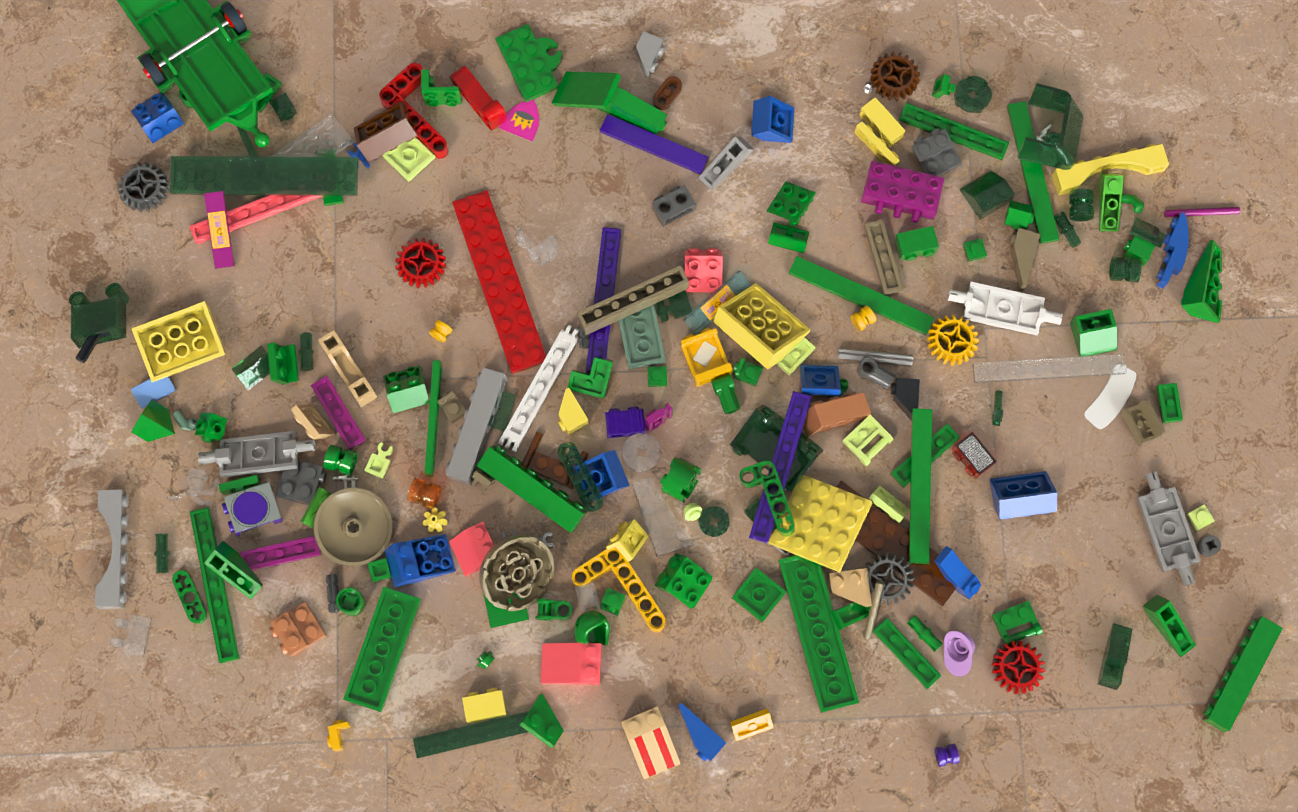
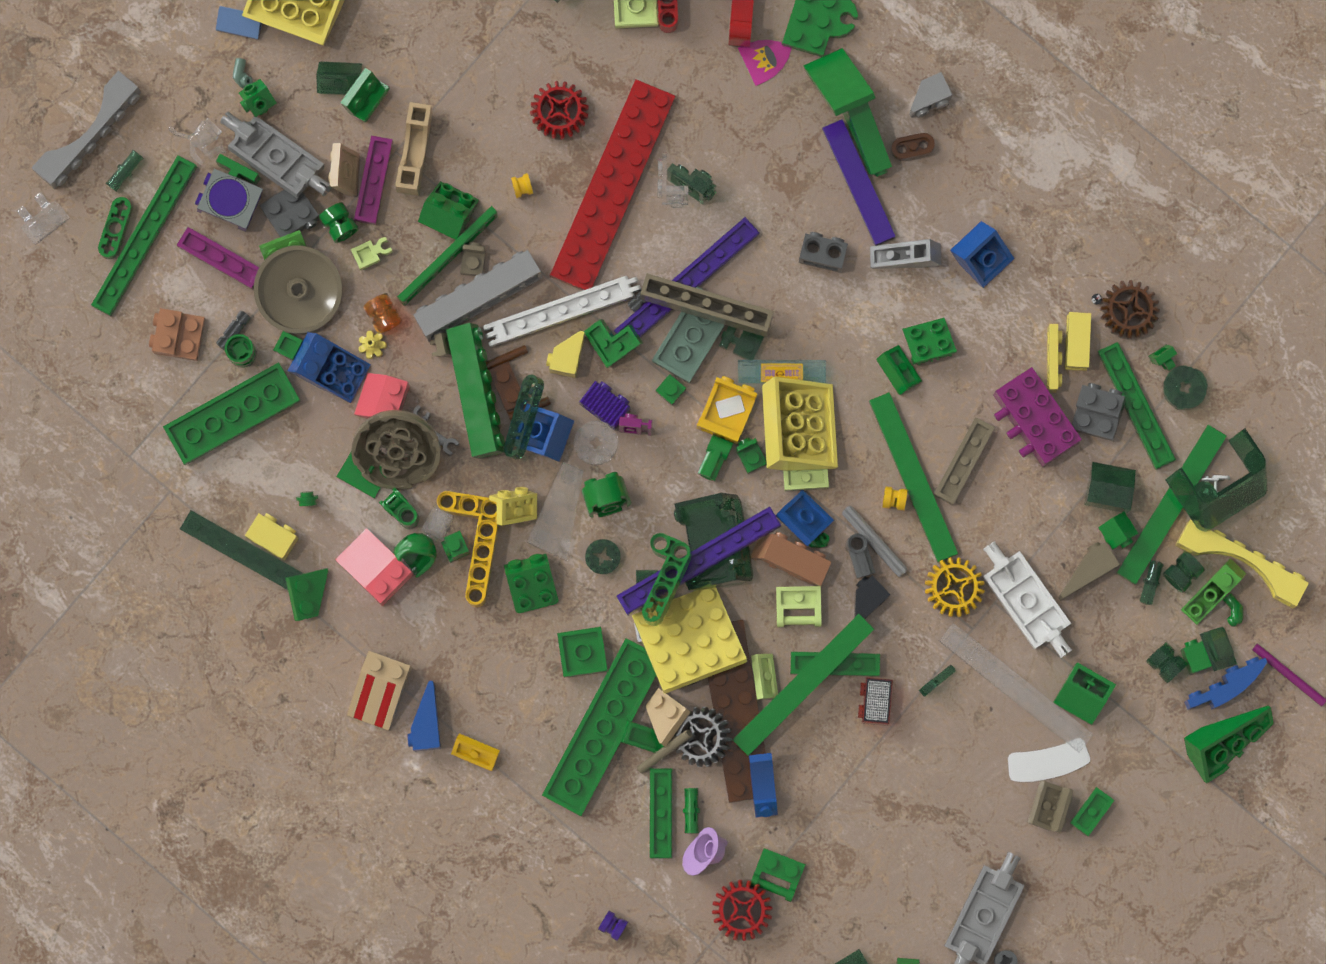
camera: 45 degrees right, 5 degrees up
(154, 423) = (214, 52): green slope -> none
(234, 569) = (169, 237): green slope -> none
(306, 351) = (394, 102): clear green axle -> none
(334, 738) = (128, 452): yellow bracket -> none
(345, 478) = (329, 242): white piece -> none
(503, 413) = (513, 303): clear green tile -> none
(555, 226) = (699, 182): none -> clear green plate
(692, 511) = (591, 531): yellowish green plate -> none
(703, 269) = (796, 331): coral bracket -> none
(916, 243) = (1003, 475): green brick -> none
(974, 250) = (1052, 526): green plate -> none
(1023, 495) = (886, 773): blue slope -> none
(1200, 517) = (1022, 932): yellowish green plate -> none

